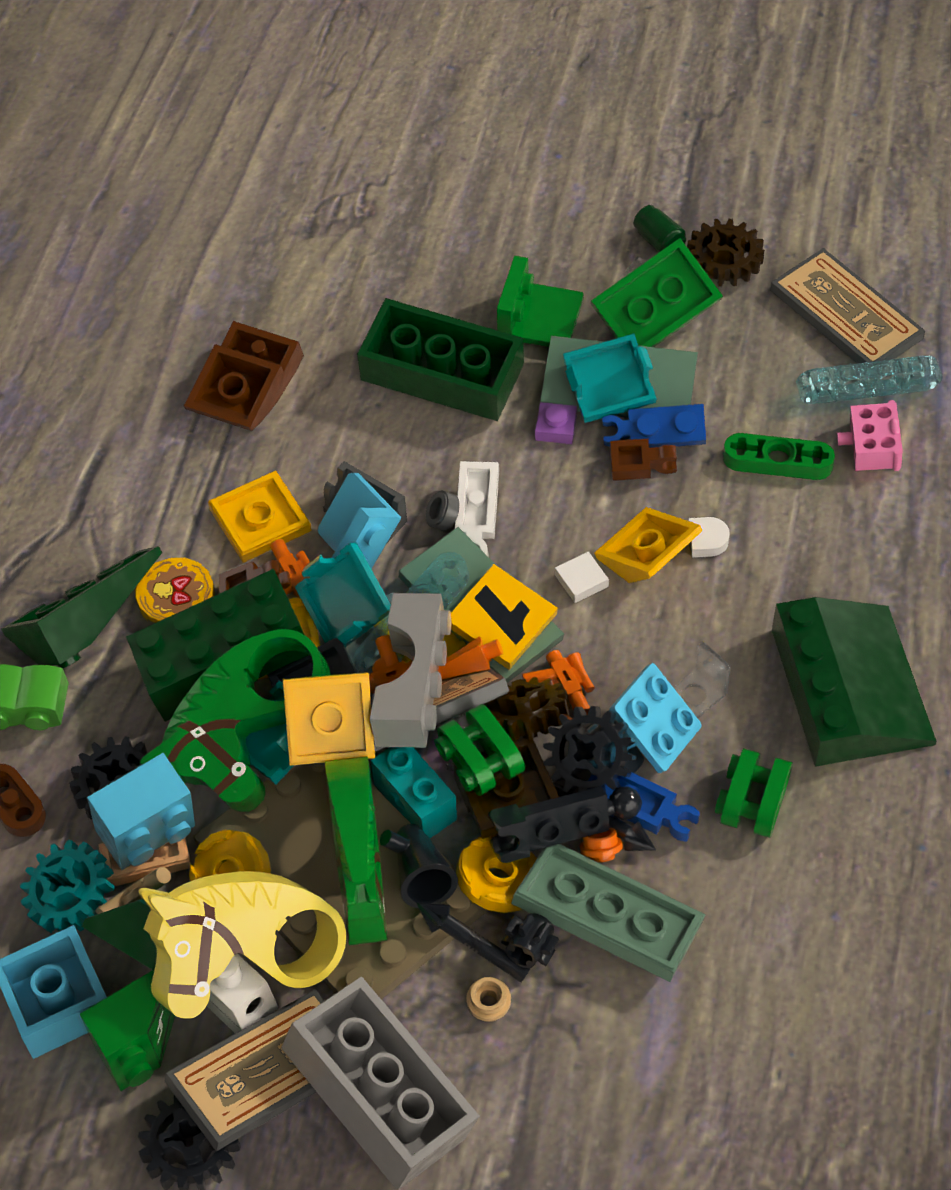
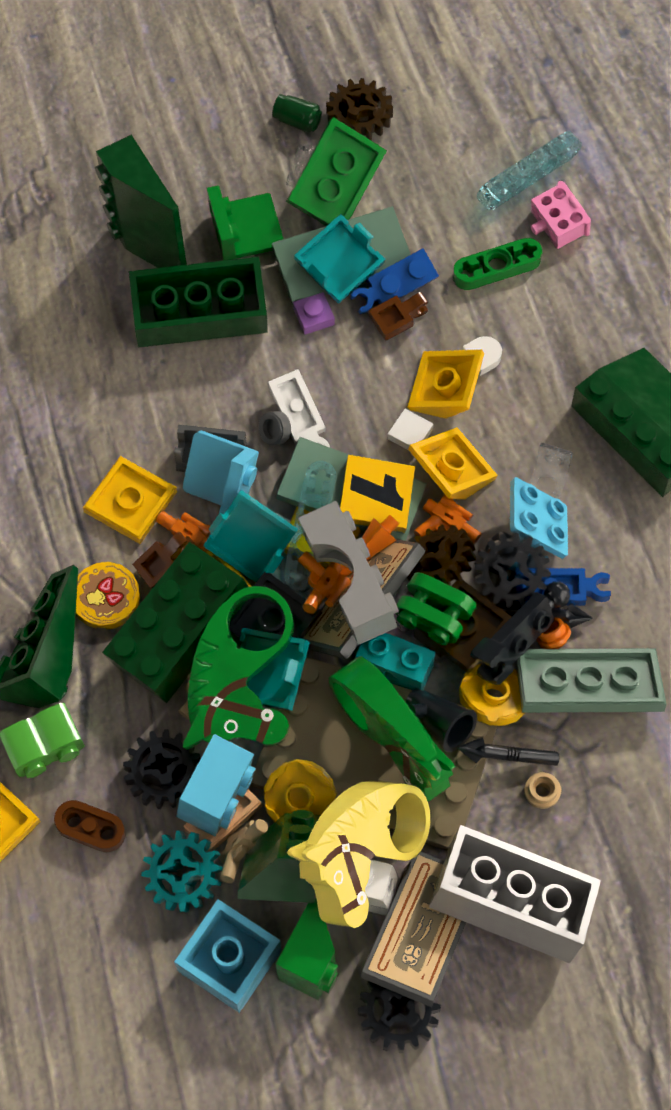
camera: 30 degrees left, 10 degrees up
(244, 376) = (44, 388): reddish brown slope -> none
(328, 718) = (315, 642): yellow tile -> none
(427, 232) = (139, 205): none -> dark green slope
(529, 940) = (550, 732): black gear -> none
(603, 627) = (453, 464): none -> yellow slope
(743, 772) = (627, 553): green brick -> none
(846, 309) = (477, 118): tile -> none

